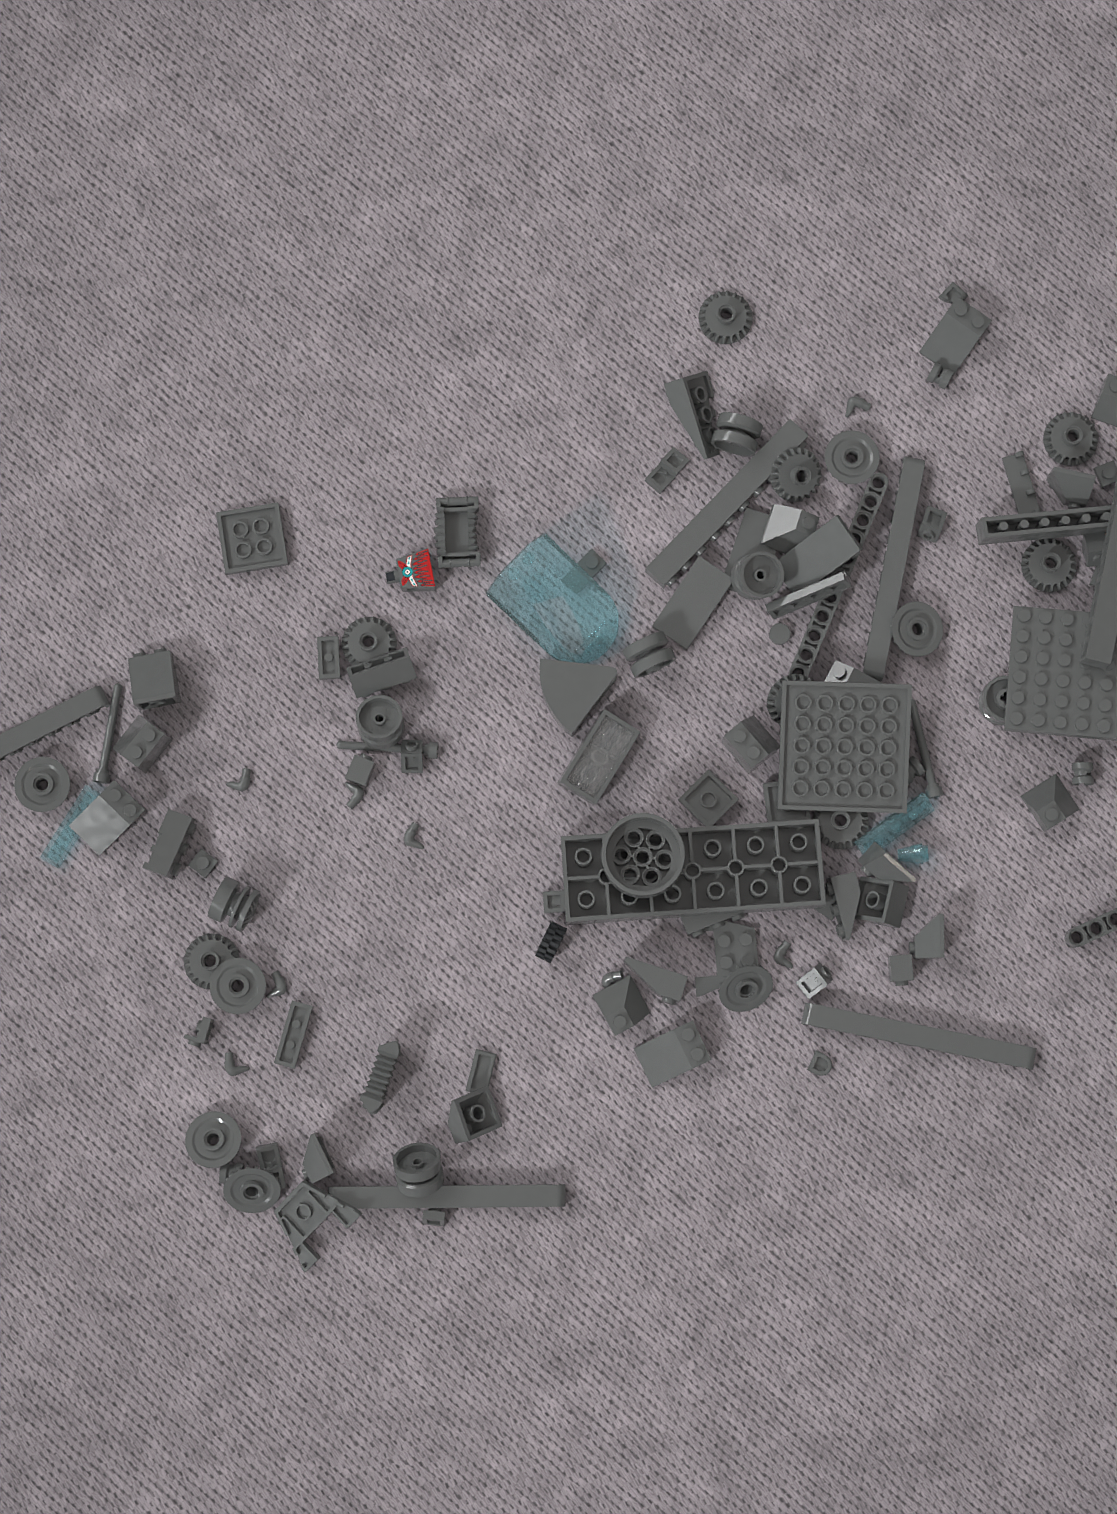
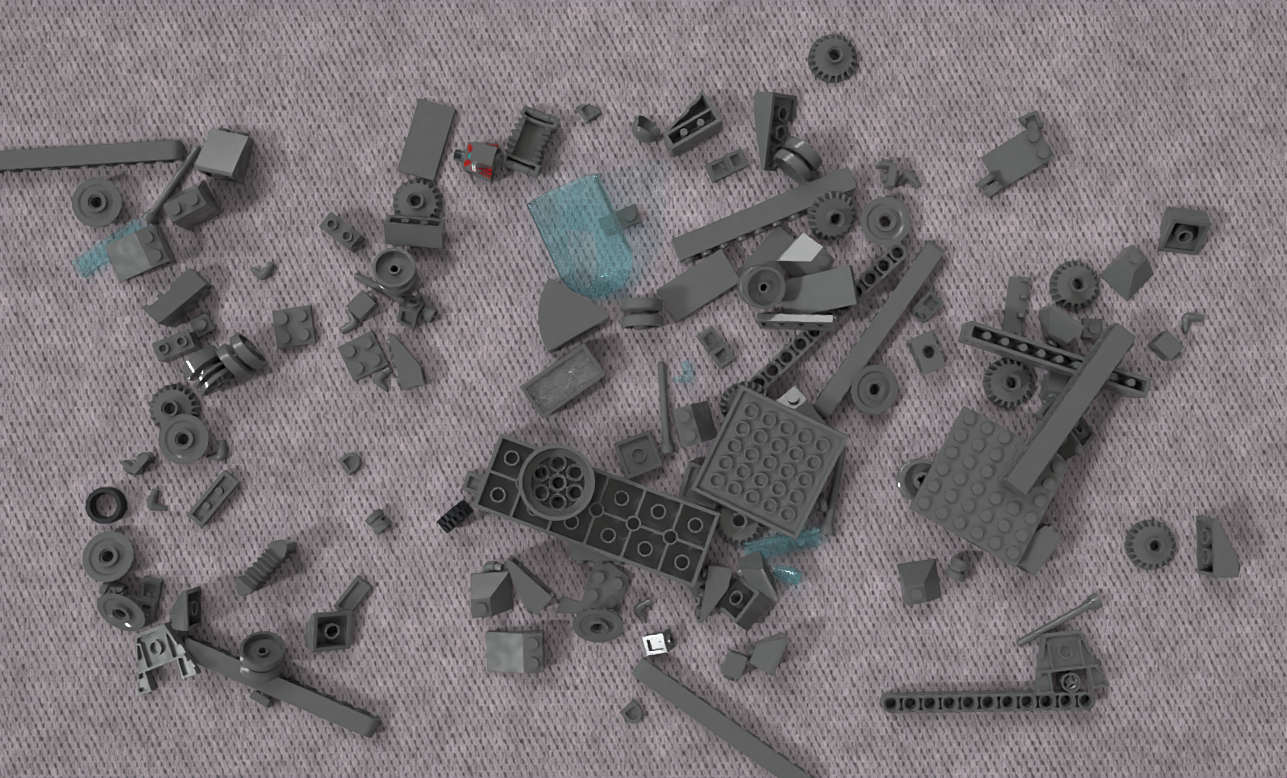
camera: 20 degrees right, 5 degrees up
(188, 894) = (177, 346): none -> dark grey hinge
(202, 1090) = (120, 508): none -> black tyre
(252, 538) = (359, 73): dark grey plate -> none
(262, 873) = (241, 357): none -> dark grey wheel
(298, 824) = (294, 327): none -> dark grey plate
(307, 705) = (342, 232): none -> dark grey hinge
(328, 657) = (378, 200): dark grey plate -> none
(350, 576) = (426, 140): none -> dark grey tile
(382, 822) = (363, 356): none -> dark grey plate
(418, 936) = (350, 462): none -> dark grey tile
(421, 565) = (485, 156): none -> dark grey brick
(437, 814) = (409, 369): none -> dark grey slope
(473, 983) = (378, 521): none -> dark grey wheel
(502, 477) = (588, 112): none -> dark grey tile
(569, 470) = (645, 130): none -> dark grey hair
(616, 445) = (693, 126): none -> dark grey wedge
(721, 696) = (687, 373): none -> clear light blue animal
(733, 777) = (667, 445): none -> dark grey piece
(737, 657) = (715, 347): none -> dark grey slope
(779, 634) = (758, 342): dark grey tile -> none
(835, 412) = (889, 176): none -> dark grey bracket
(955, 582) = (925, 364): none -> dark grey brick

